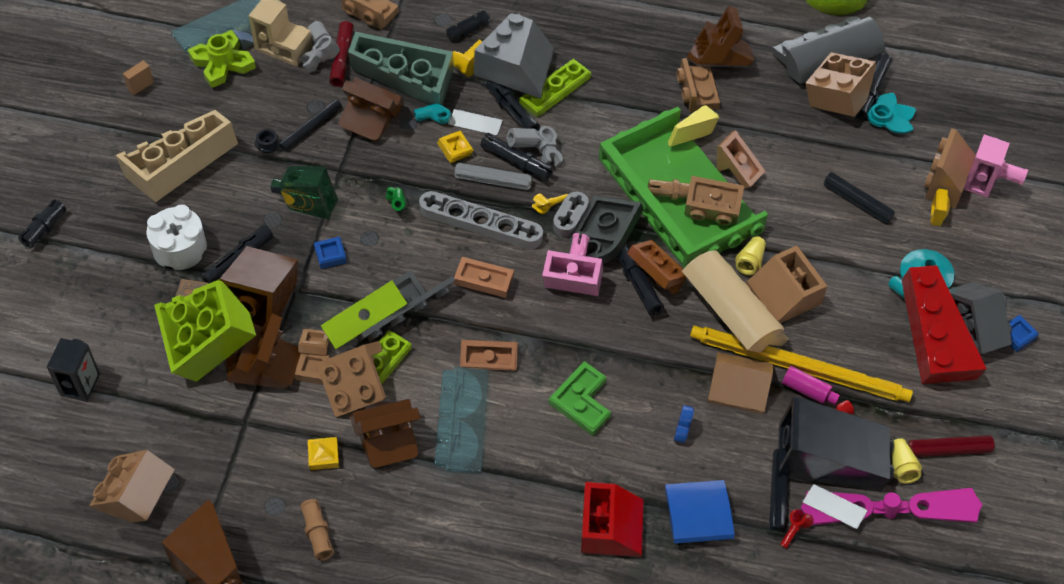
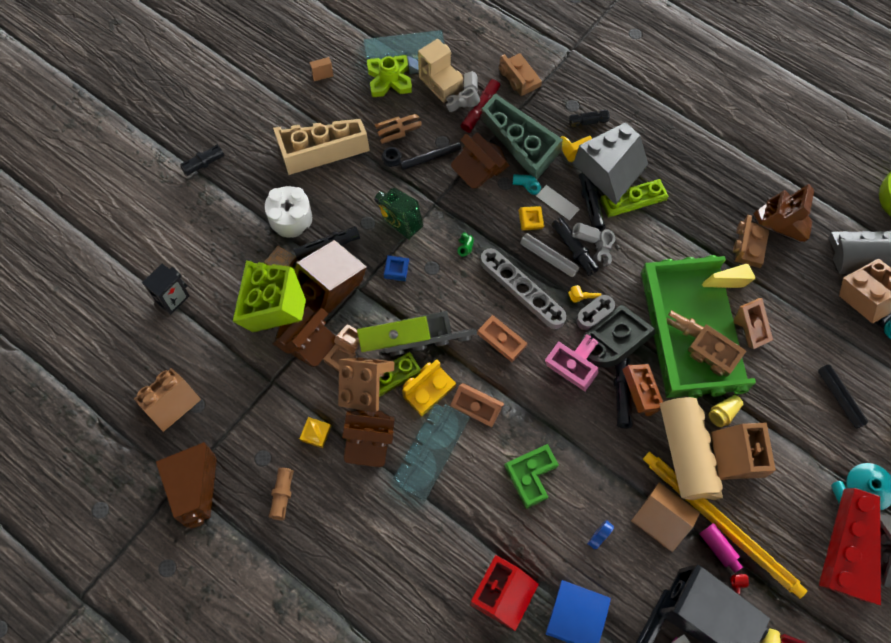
camera: 25 degrees right, 10 degrees up
(261, 104) = (398, 127): none -> medium nougat arm
(427, 358) = (427, 387): none -> yellow bracket

